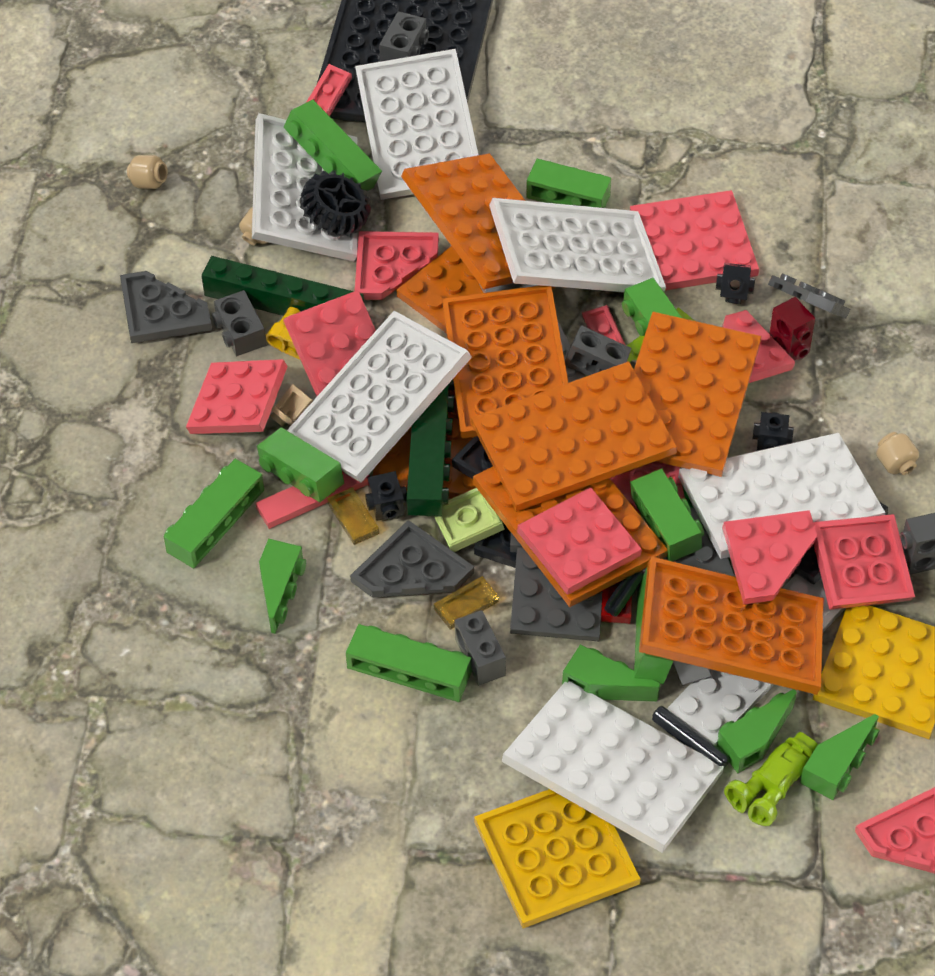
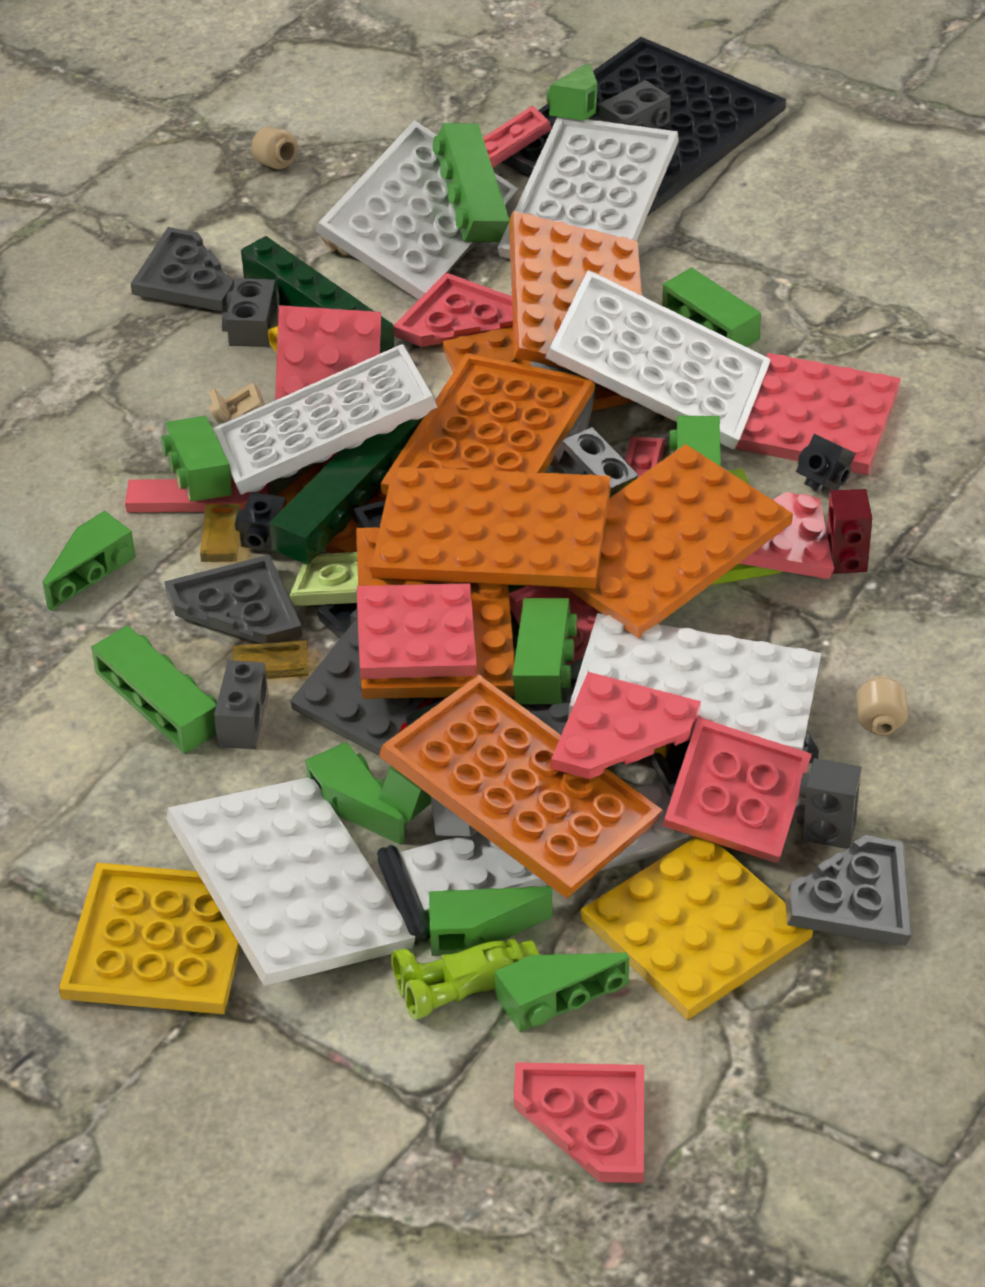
camera: 30 degrees right, 10 degrees down
(213, 513) = (77, 471): bright green brick -> none
(237, 397) = (188, 374): coral plate -> none
(335, 203) = (432, 232): black gear -> none
(358, 42) = (574, 95): none -> bright green slope
(772, 431) = (747, 621): black brick -> none
(810, 295) = (904, 510): dark grey plate -> none

